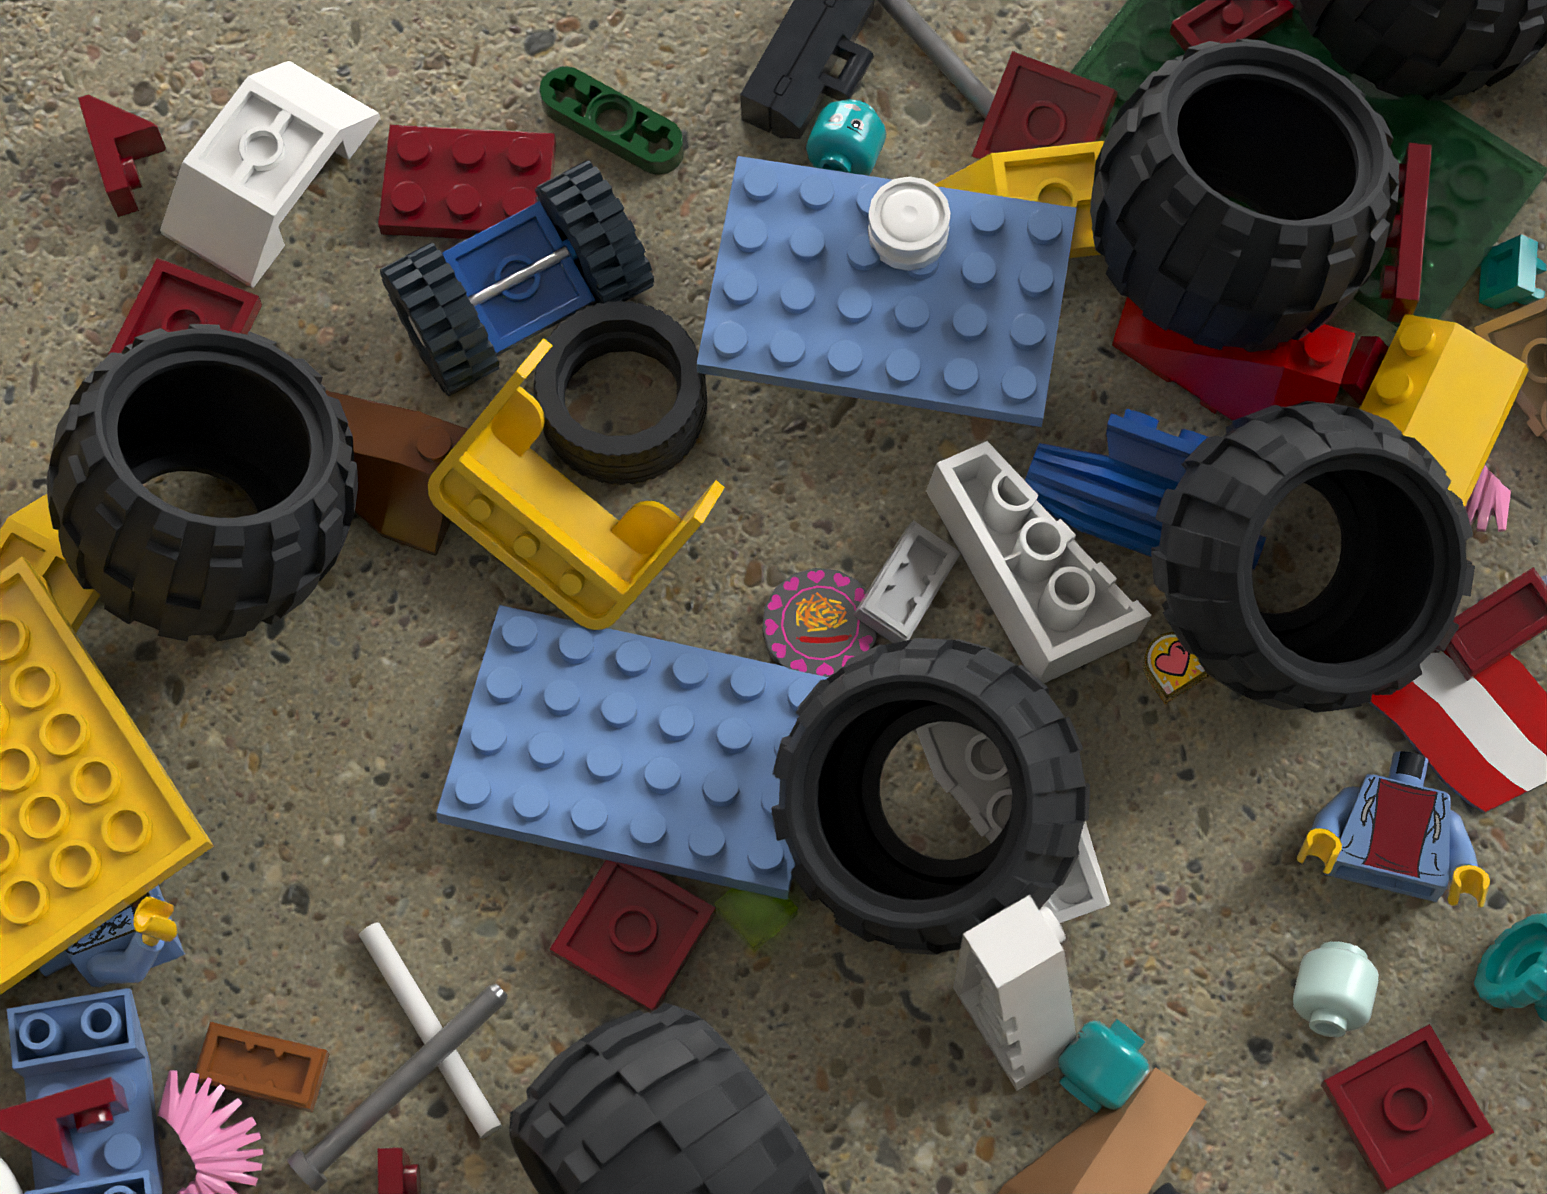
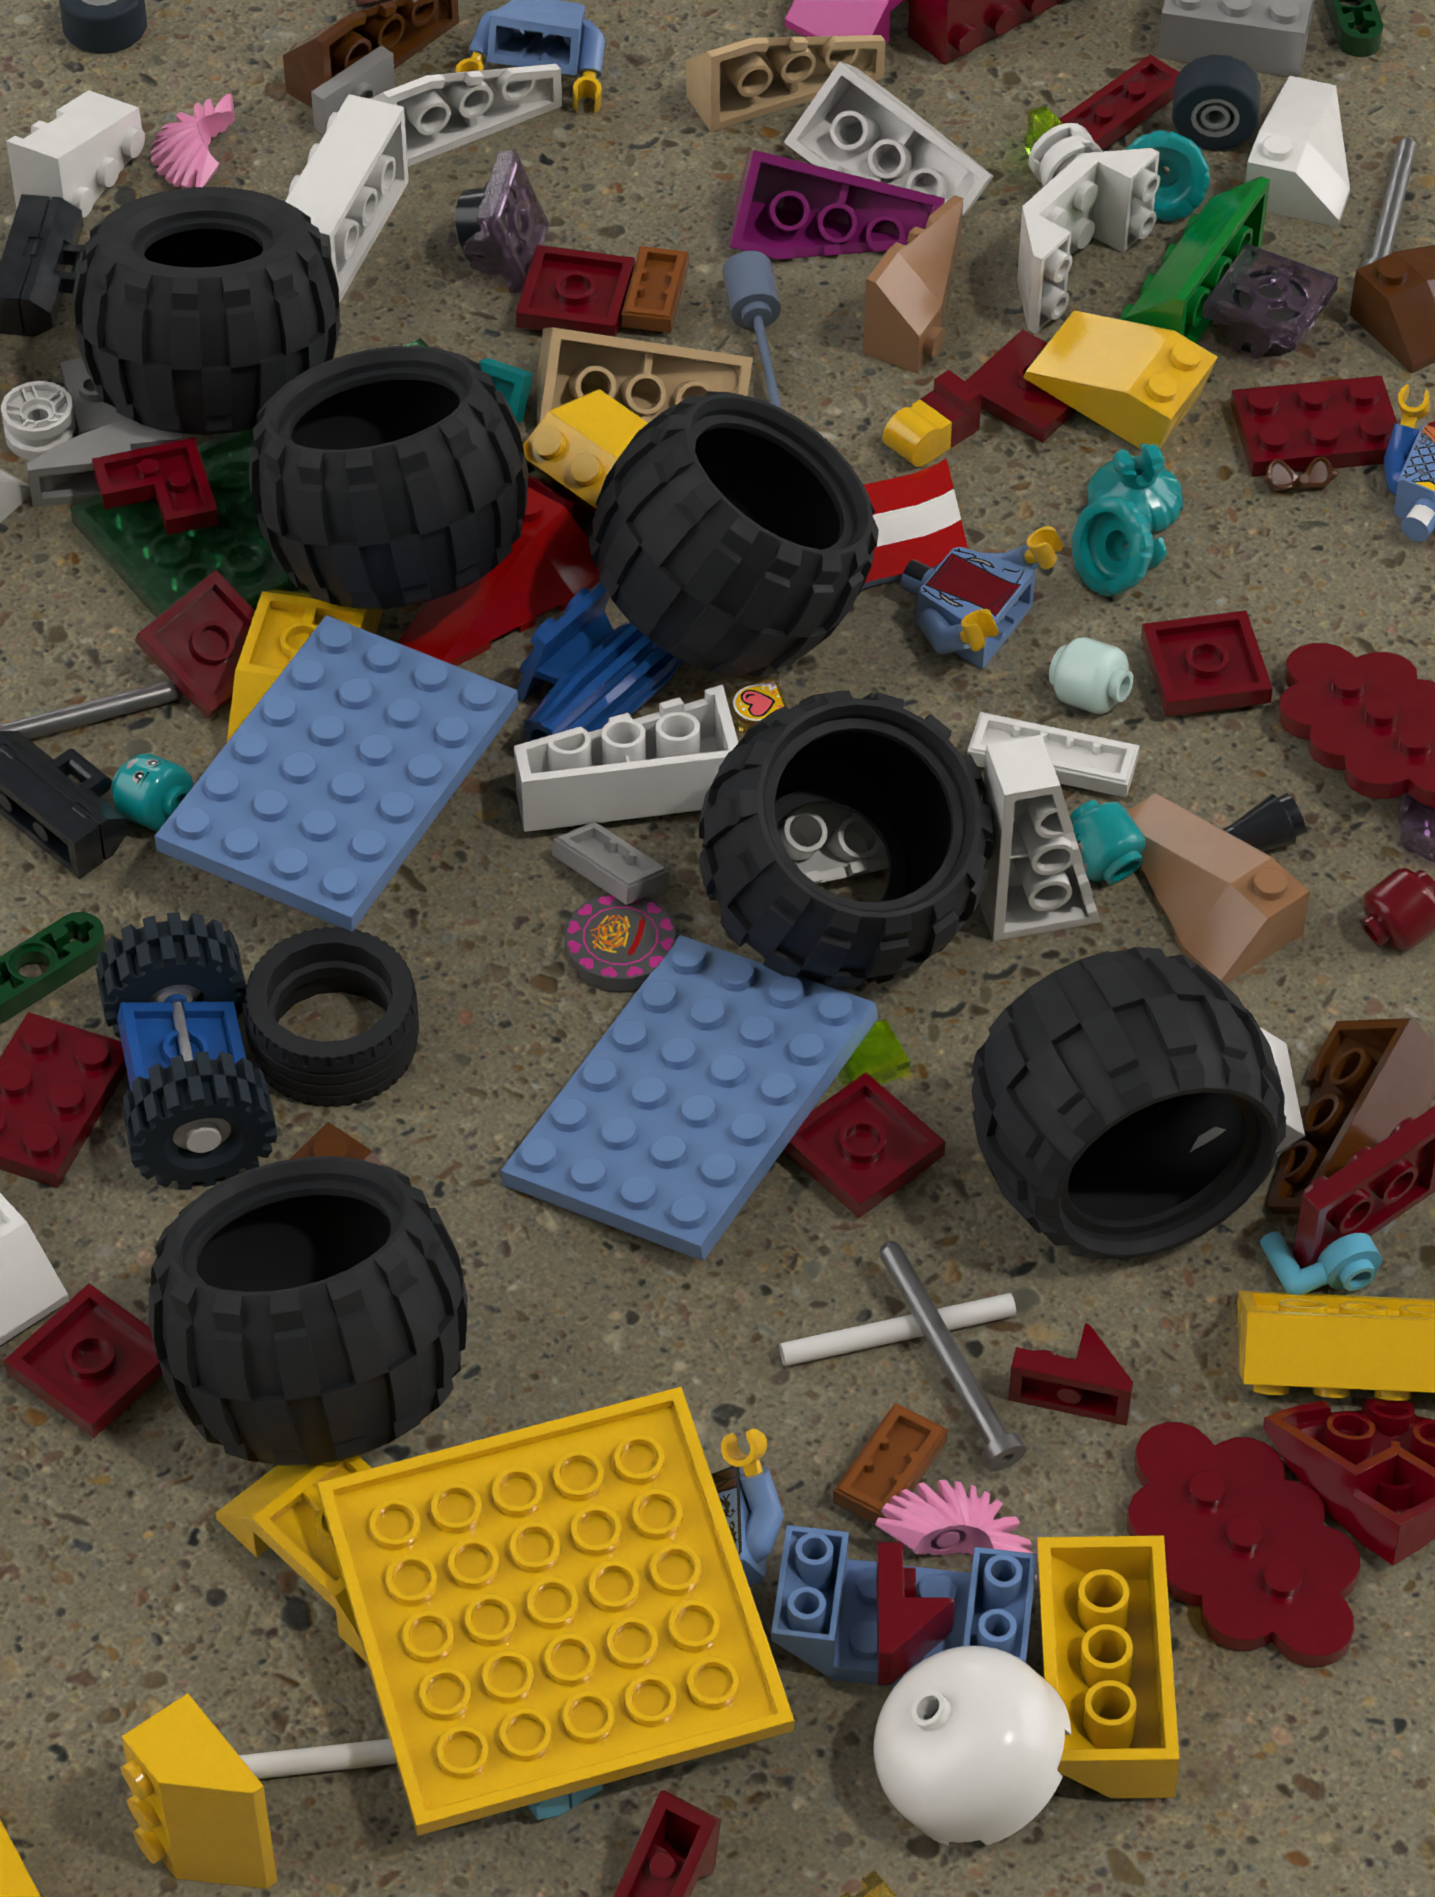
camera: 75 degrees left, 20 degrees down
(545, 522) = (497, 1073): yellow windscreen -> none
(909, 223) = (297, 713): white wheel -> none
(1214, 980) = (1077, 757): none -> white plate

